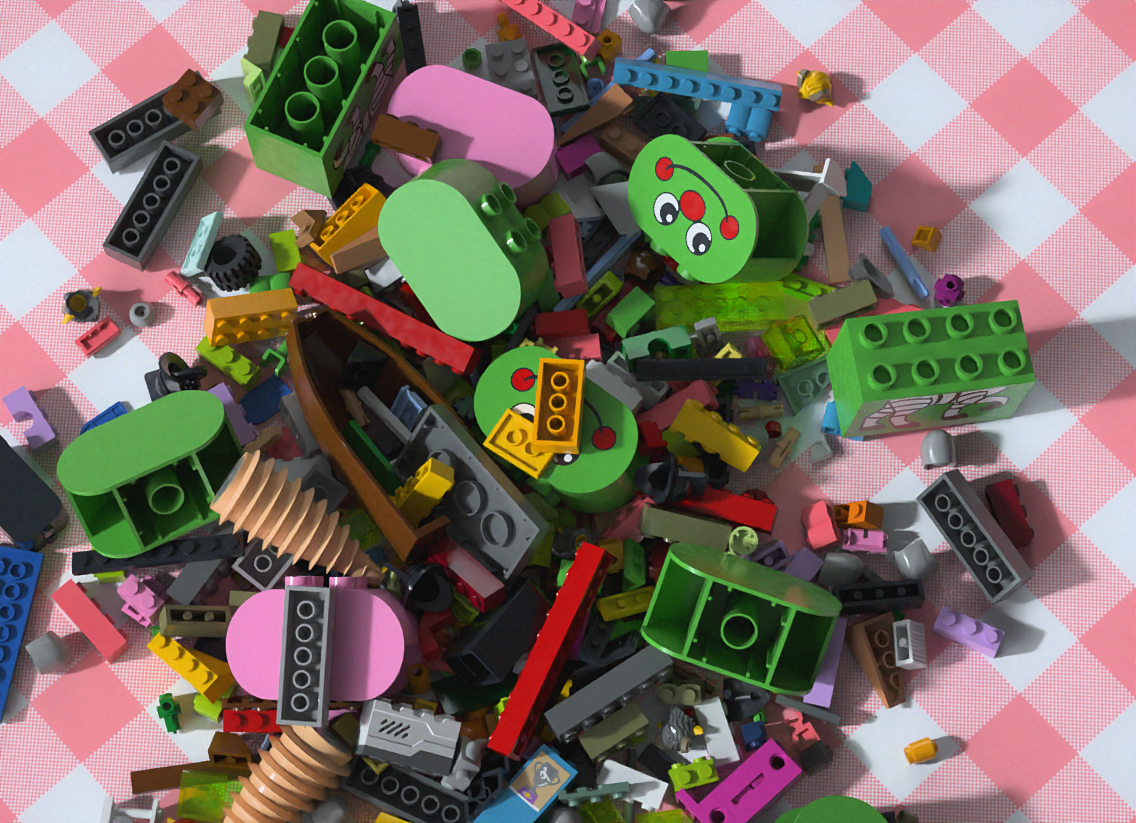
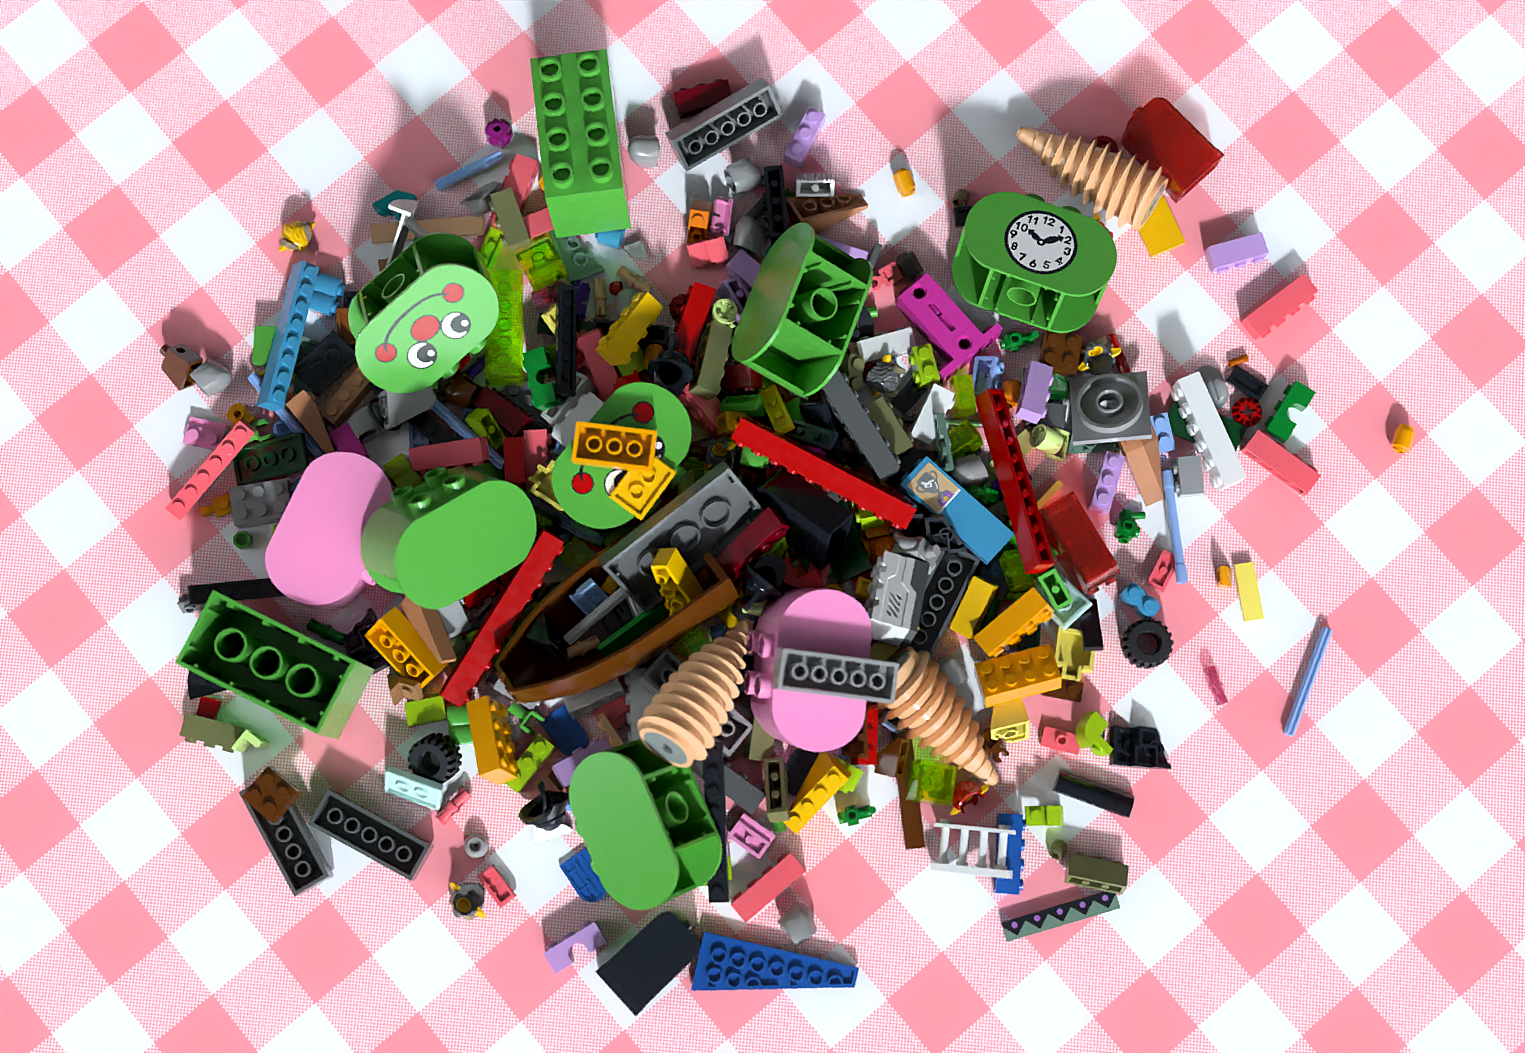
camera: 90 degrees left, 10 degrees up
(141, 598) = (753, 838): bright pink brick -> none
(406, 138) = (337, 585): reddish brown brick -> none
(462, 405) = (589, 548): black plate -> none
(631, 312) = (508, 400): bright green brick -> none
(709, 337) = (531, 334): light grey hinge -> none
(753, 735) = (888, 316): dark blue brick -> none
(927, 238) = (446, 151): light orange slope -> none

